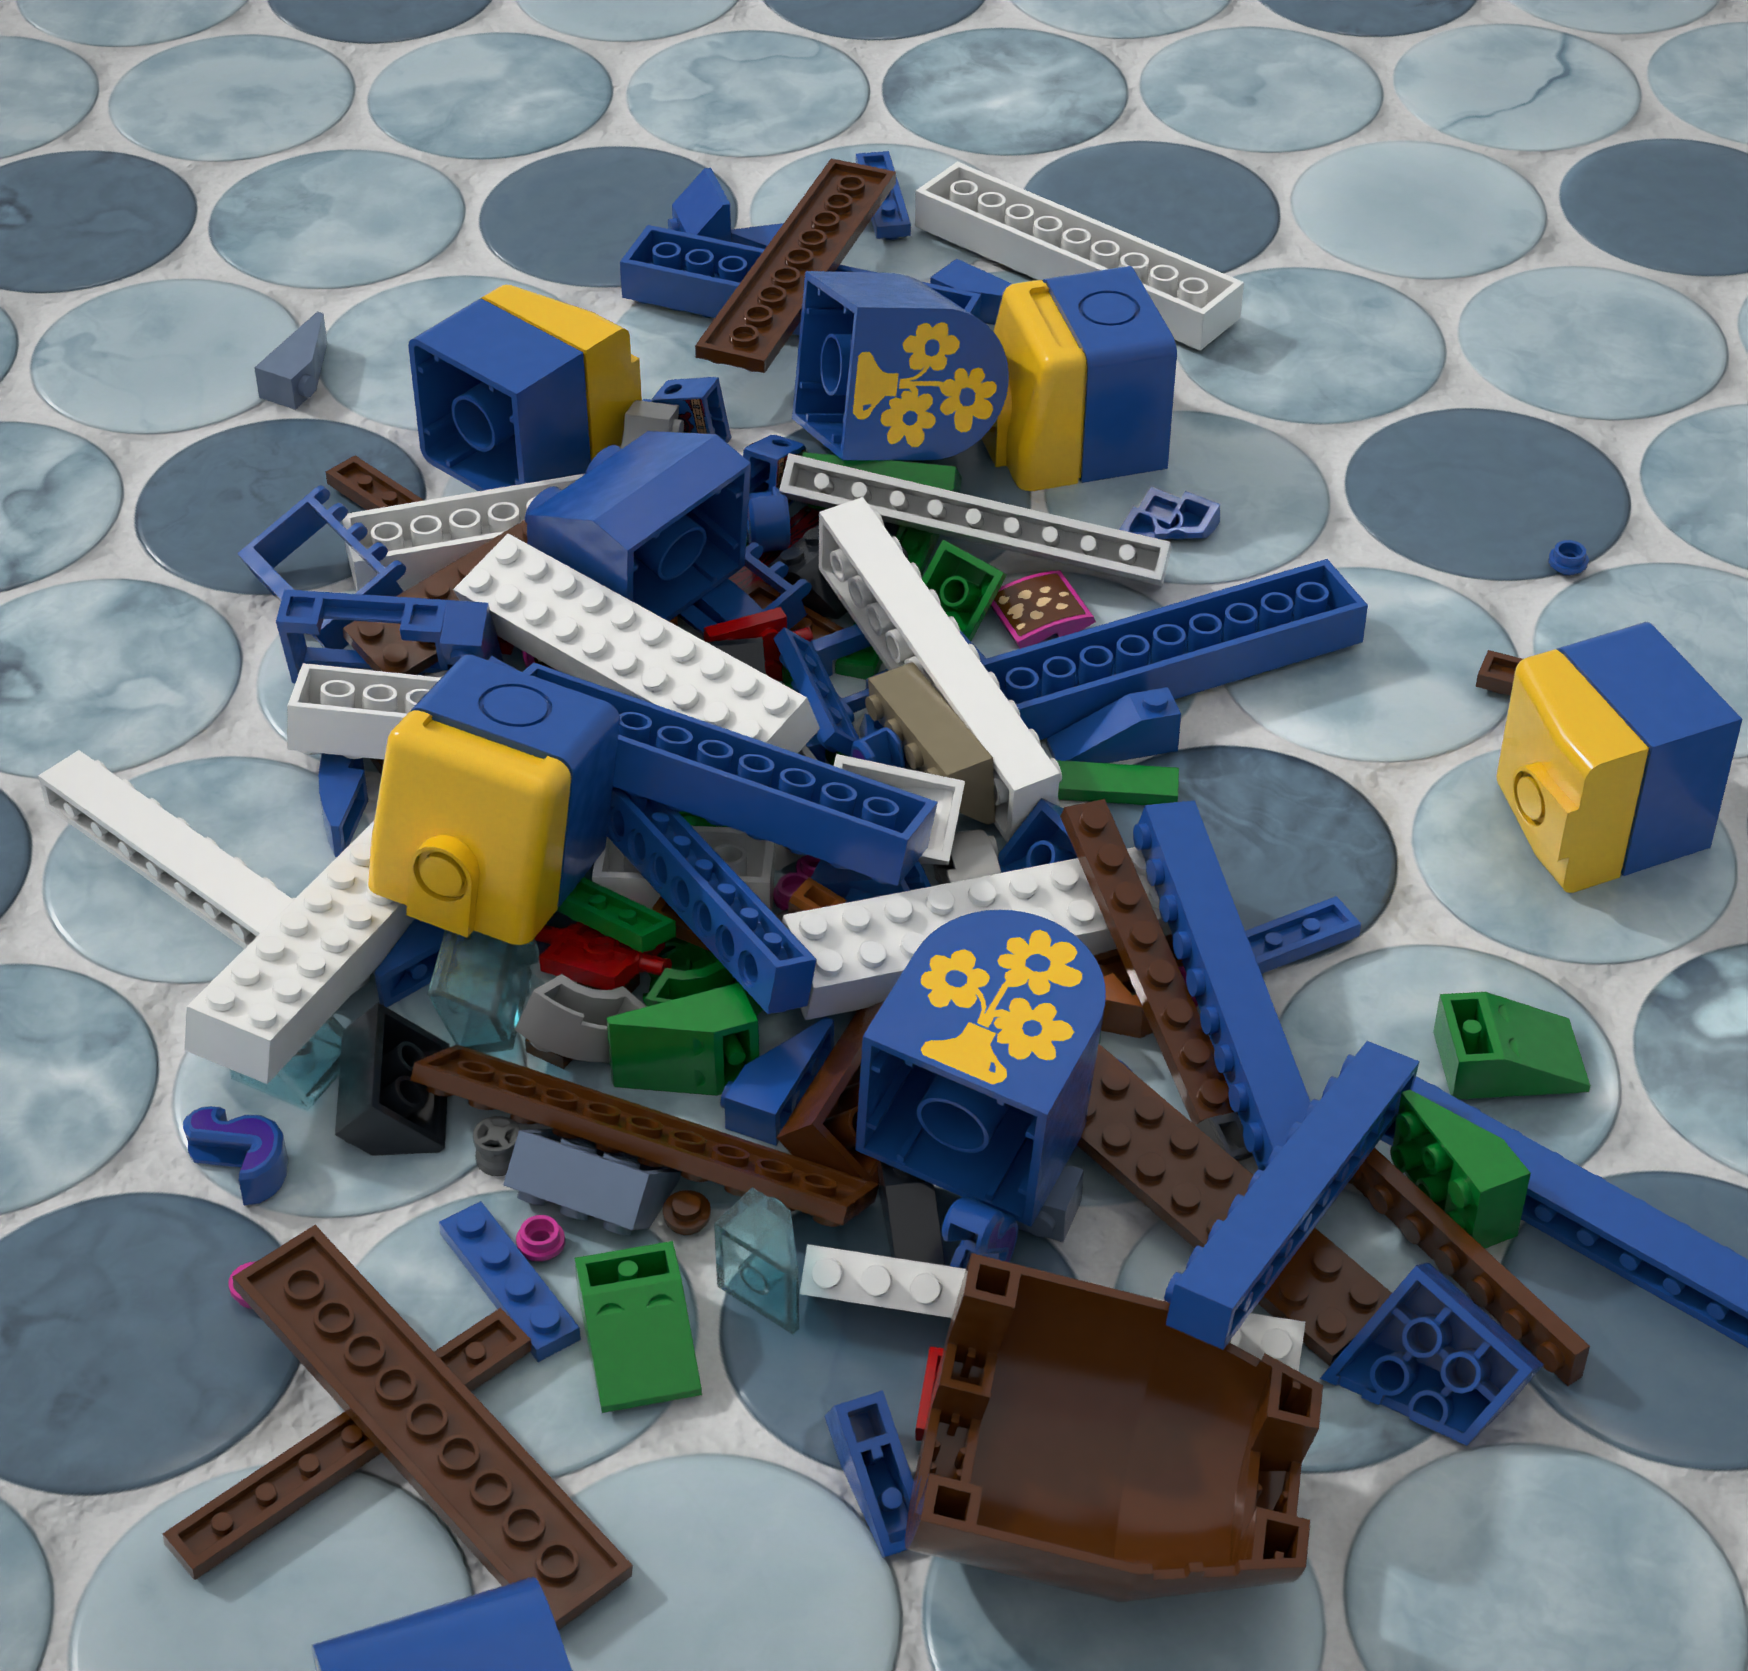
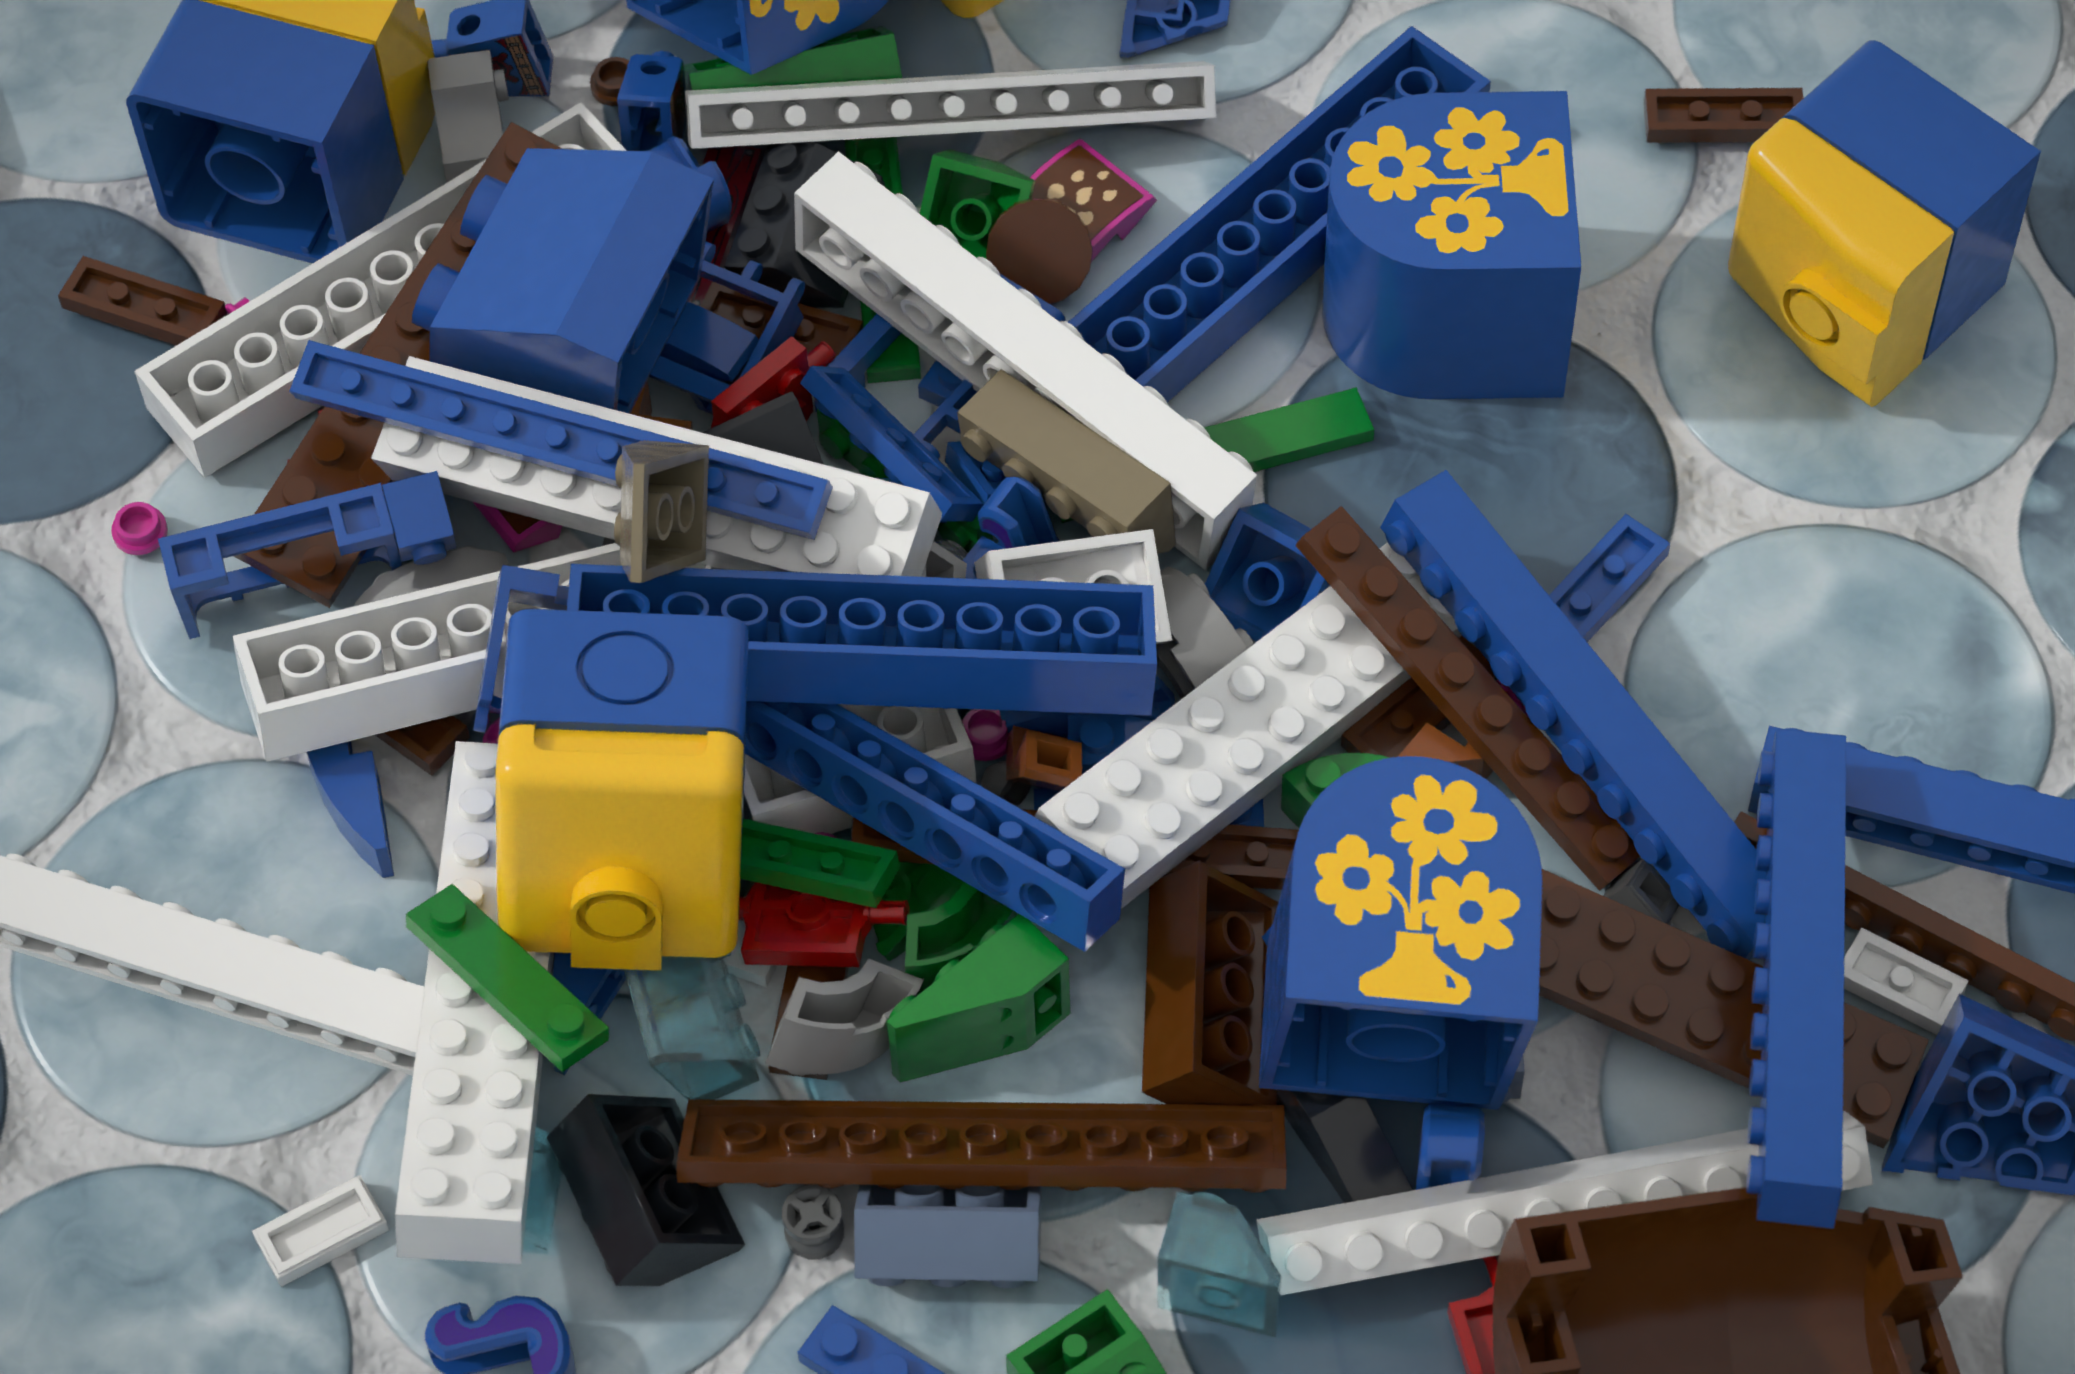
camera: 20 degrees left, 15 degrees up
(152, 1046) = (320, 1230): none -> white tile
(297, 527) = (77, 408): blue hinge -> none
(355, 902) = (507, 977): none -> green plate
(540, 1238) = (927, 1312): dark pink plate -> none
(579, 601) = (544, 434): none -> blue plate
(607, 640) = (661, 507): none -> dark tan slope
(686, 1212) = (1078, 1225): reddish brown plate -> none
(775, 1083) = (1098, 1018): blue slope -> none
(994, 618) = (1041, 248): none -> reddish brown tile
(1124, 730) = (1264, 359): blue slope -> none
(1283, 682) = (1455, 246): none -> blue brick
(1389, 1247) = (1901, 981): none -> white plate
(1461, 1168) = (1934, 851): green slope -> none
(1505, 1048) = (1905, 661): green slope -> none

